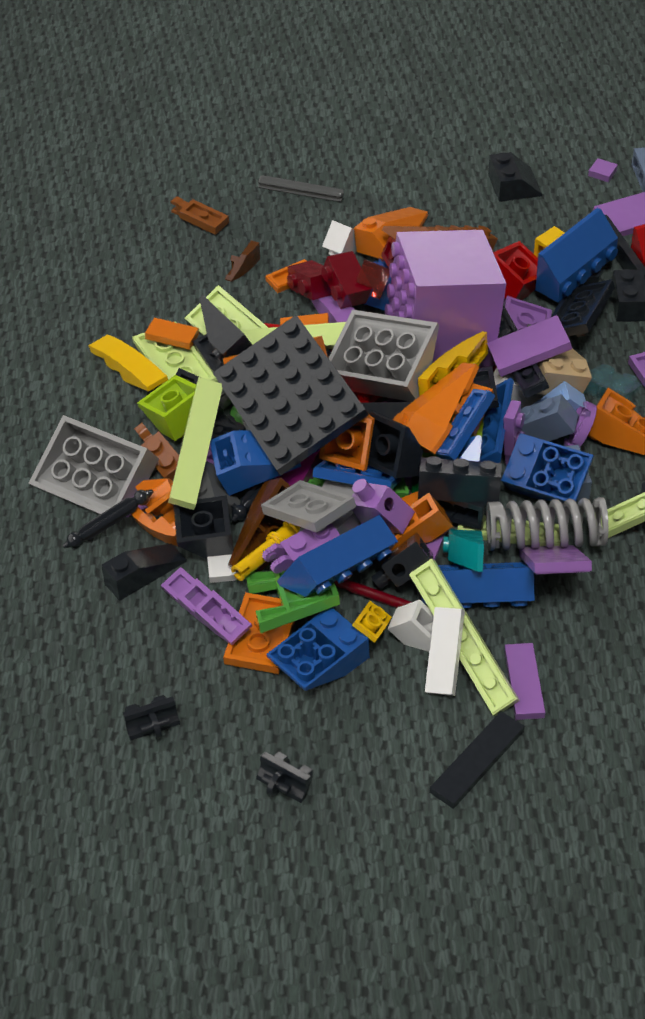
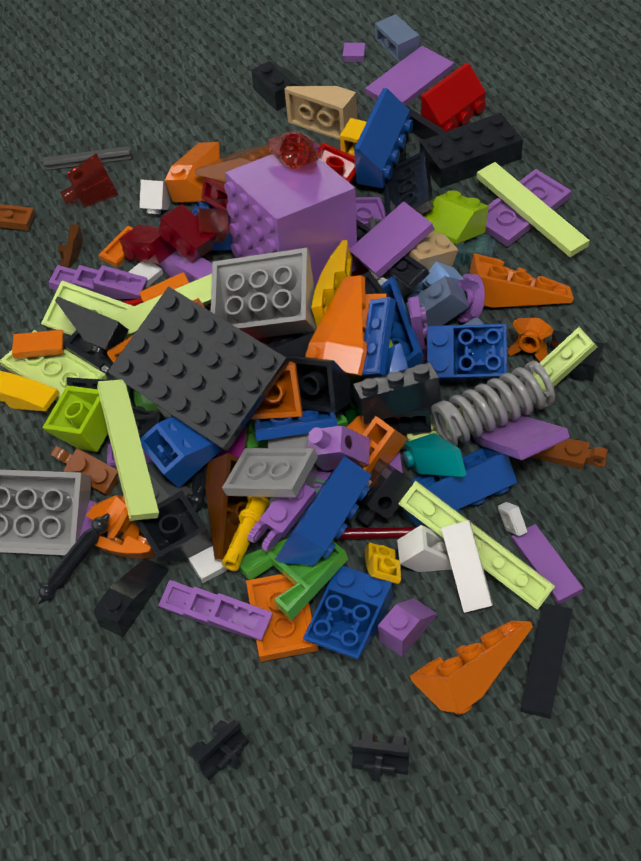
camera: 20 degrees left, 5 degrees up
(258, 300) = (105, 281): none -> medium lavender slope
(288, 210) = (89, 183): none -> clear red torso
(299, 305) = (147, 270): none -> white tile
(365, 680) = (405, 625): none -> medium lavender slope
(386, 744) = (466, 677): none -> orange wedge
(467, 231) = (294, 149): none -> clear red hat
(511, 629) = (512, 518): none -> white tile
(536, 208) = (321, 108): none -> tan slope
(600, 594) = (574, 454): none -> dark orange plate
(610, 350) = (458, 216): none -> lime slope
(623, 480) = (531, 337): none -> orange brick

